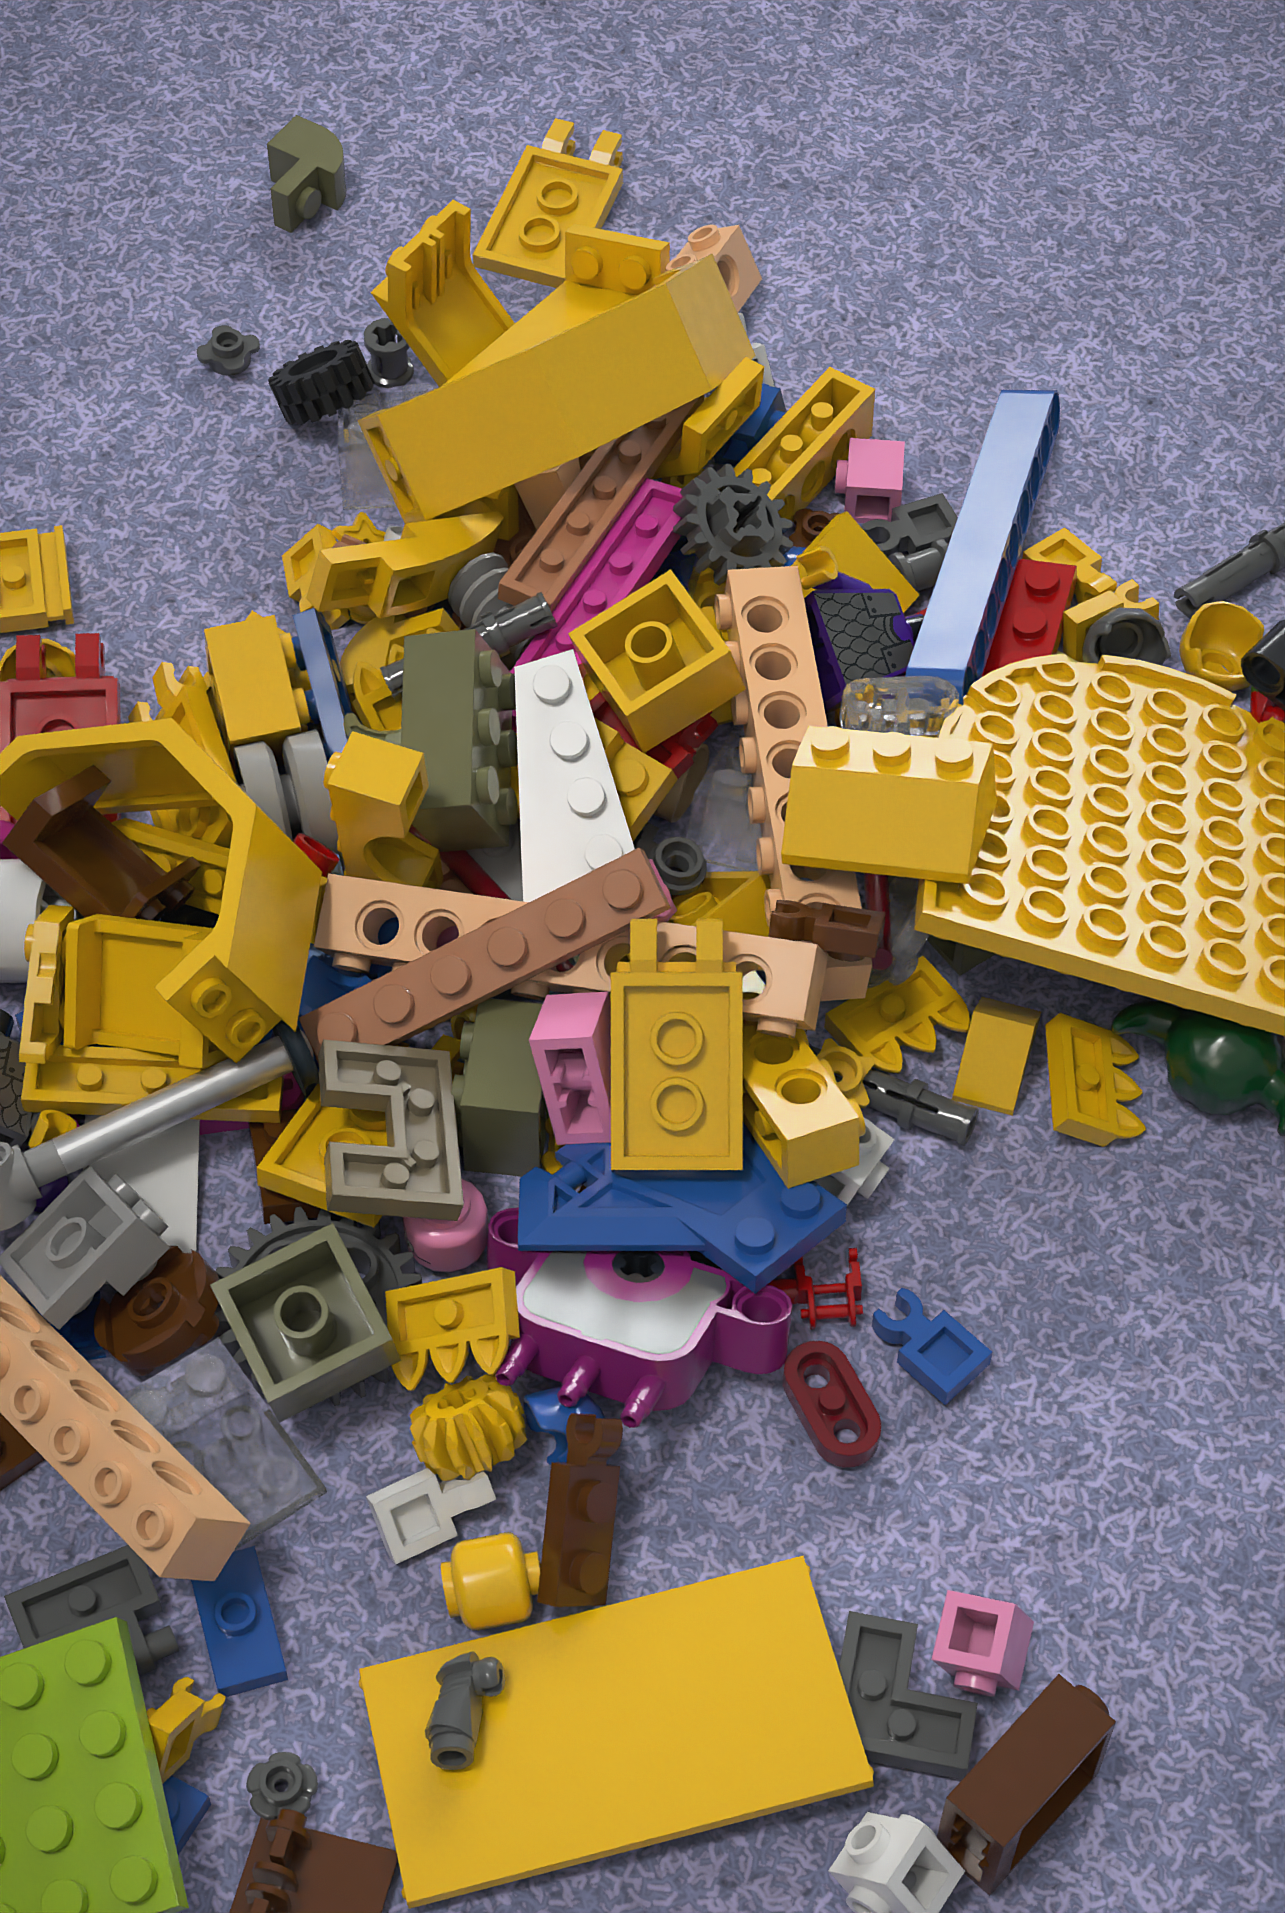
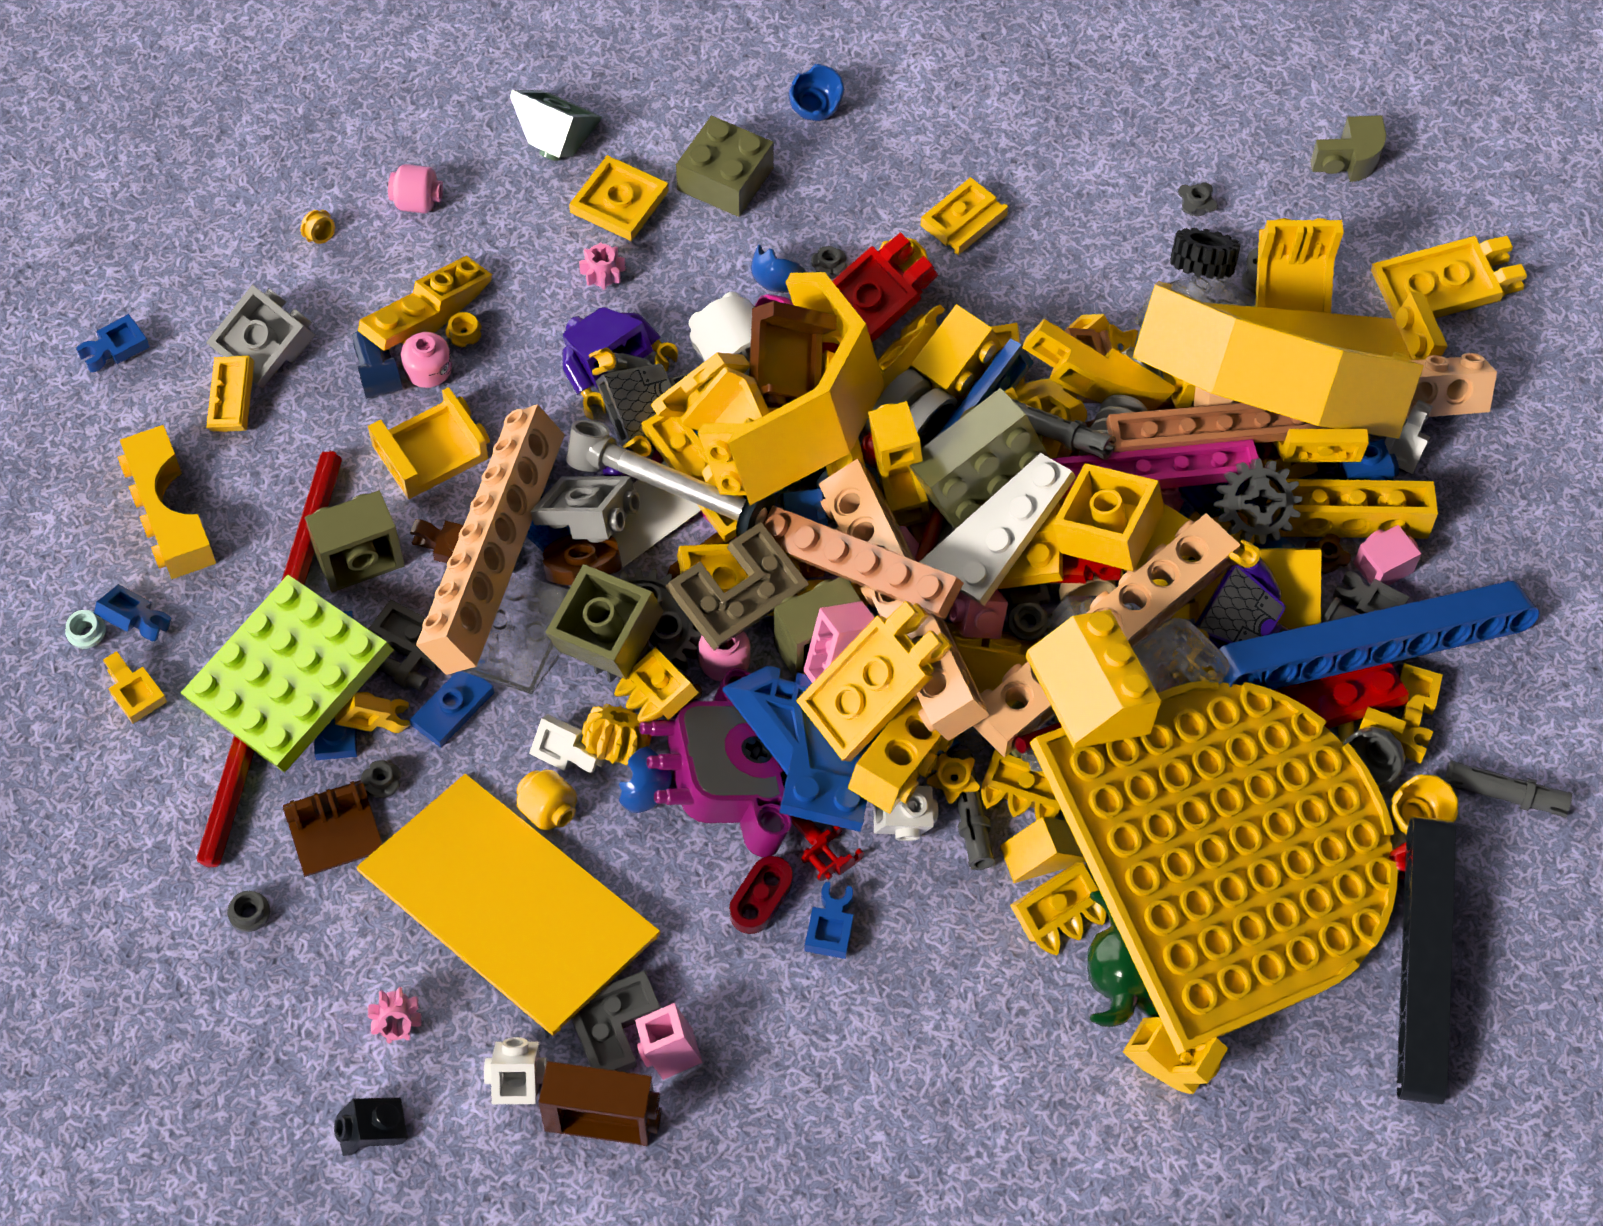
camera: 55 degrees right, 5 degrees up
(459, 1710) = (466, 826): dark grey arm -> none
(581, 1515) = (598, 813): reddish brown plate -> none
(840, 930) = (1004, 708): reddish brown plate -> none

